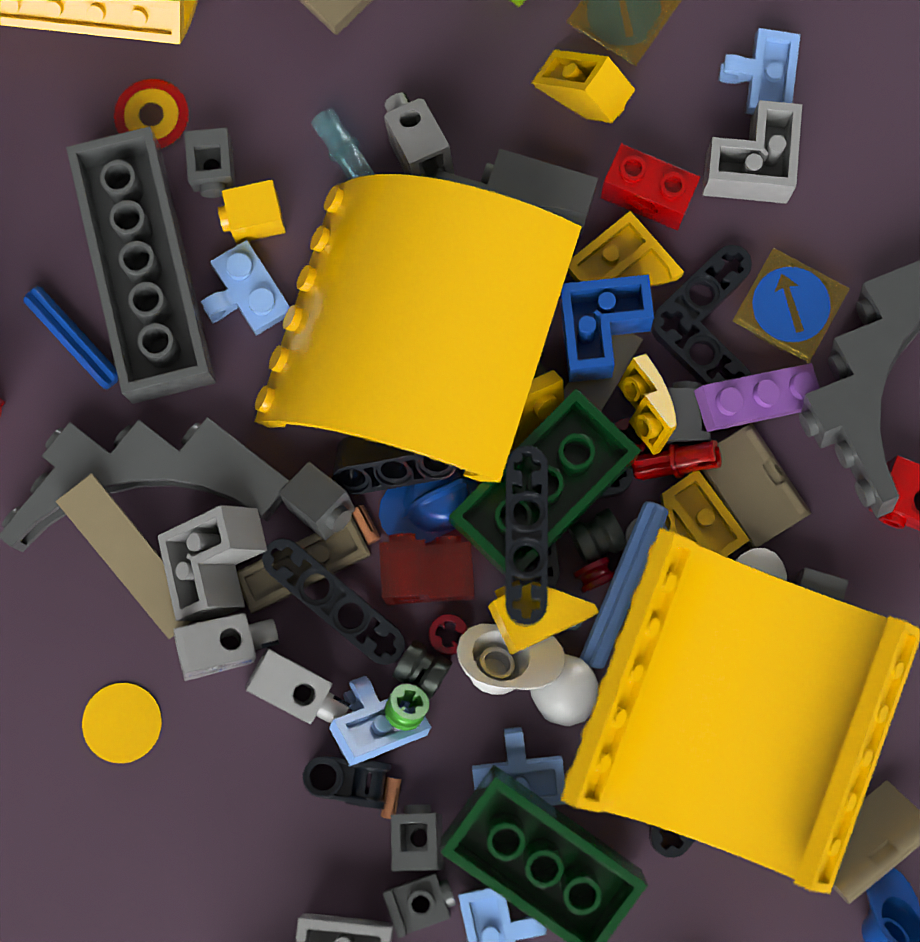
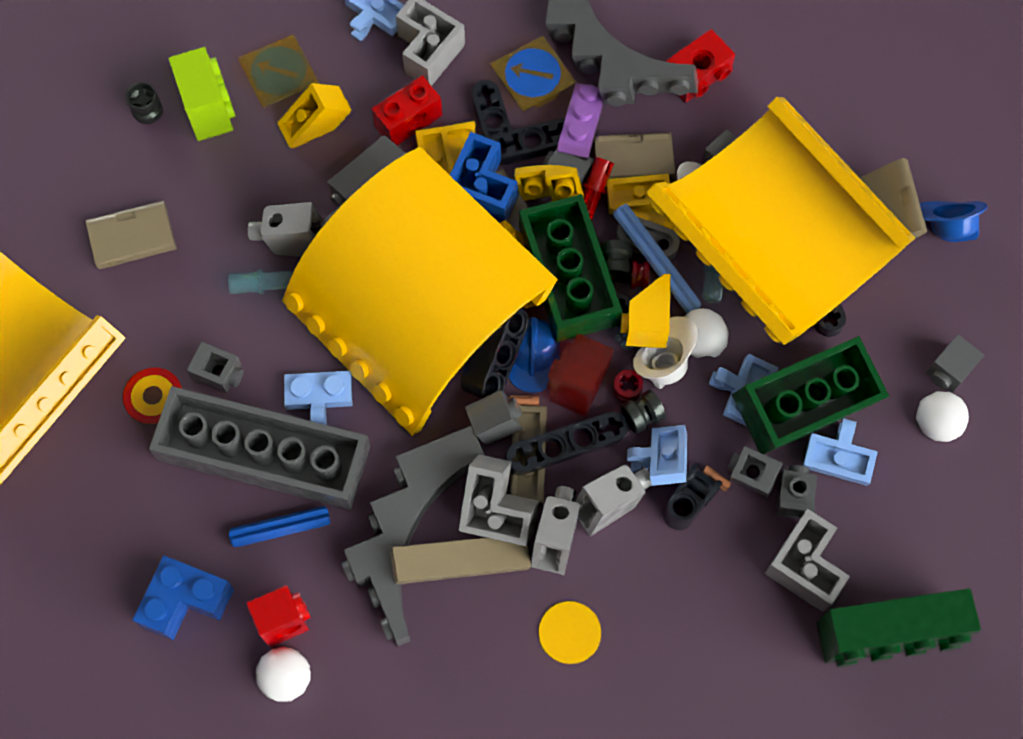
camera: 65 degrees left, 10 degrees down
(251, 212) = (268, 359): yellow brick -> none
(416, 698) = (659, 424): bright green bush -> none
(531, 536) = (602, 281): black beam -> none

